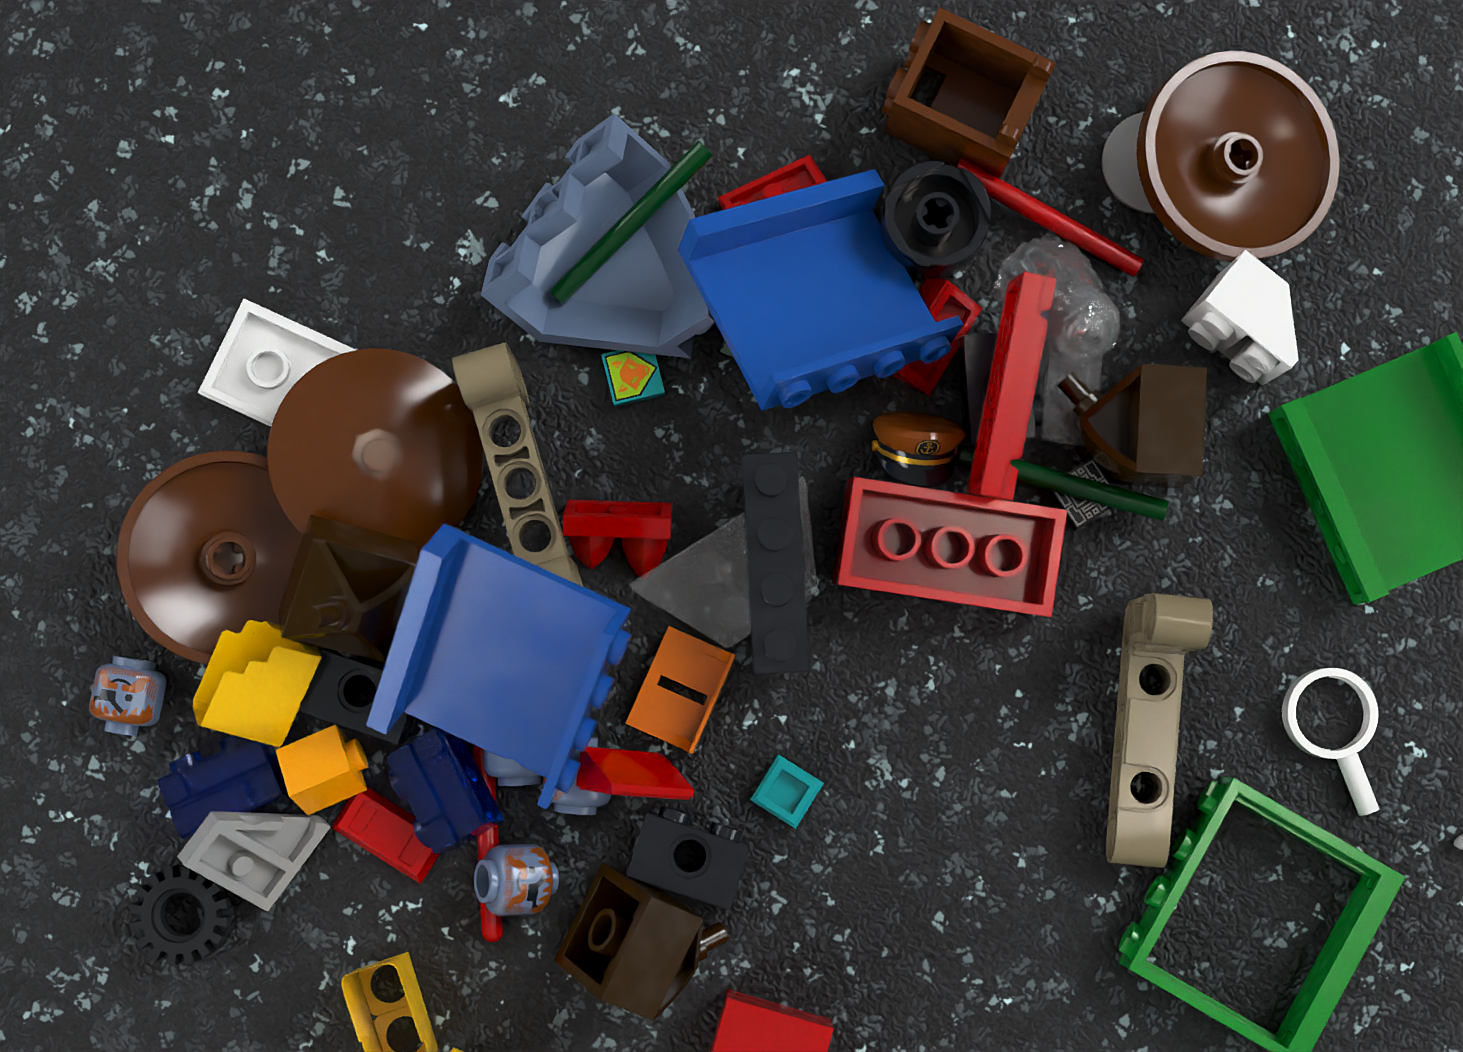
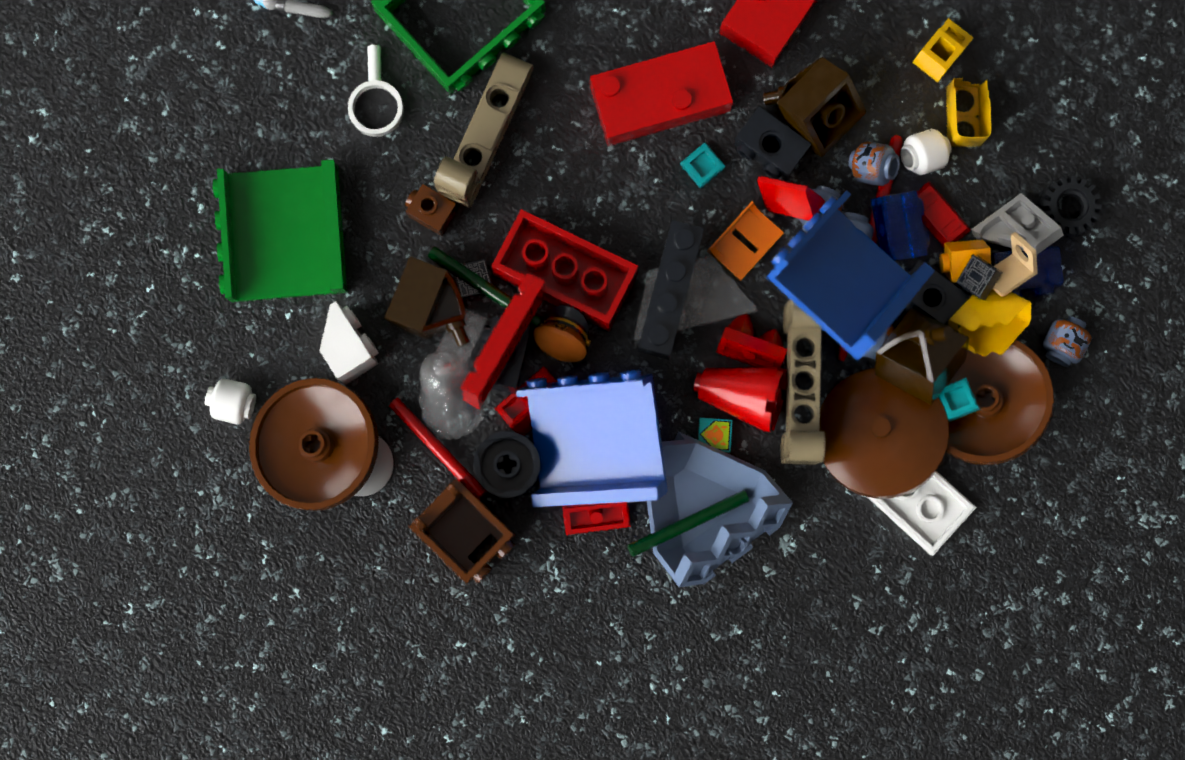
camera: 160 degrees left, 0 degrees up
(243, 771) = (1017, 267): none -> tan bracket
(270, 541) = (958, 400): none -> teal tile
(293, 741) = (979, 277): none -> black tile
(439, 927) = (926, 151): none -> white head
(607, 446) = (744, 393): none -> red cone
(892, 882) = (661, 93): none -> red brick
(1189, 573) = (430, 209): none -> reddish brown brick
(1385, 185) = (230, 401): none -> white head

